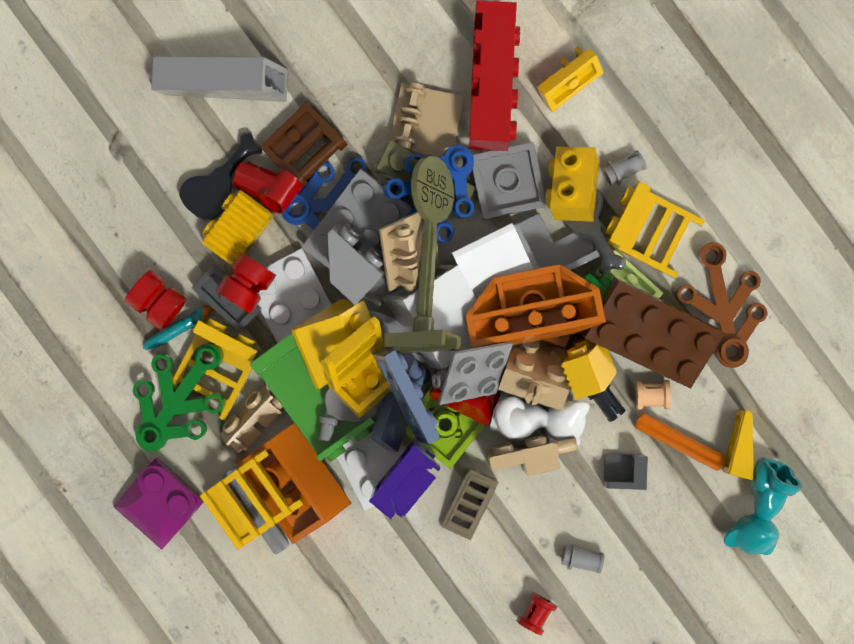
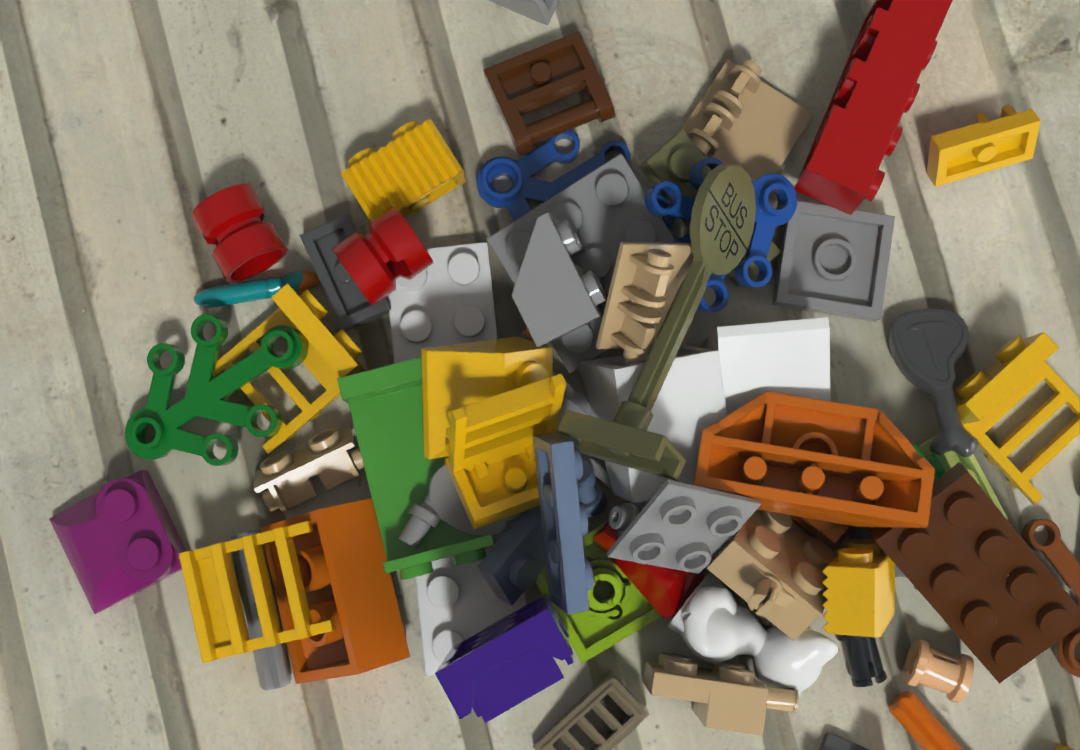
camera: 25 degrees right, 5 degrees down
(207, 193) = (376, 109): black piece -> none
(273, 189) = (478, 136): red piece -> none
(543, 252) = (851, 383): light grey panel -> none
(573, 183) = (935, 300): yellow brick -> none
(624, 168) = (1015, 308): light grey pin -> none

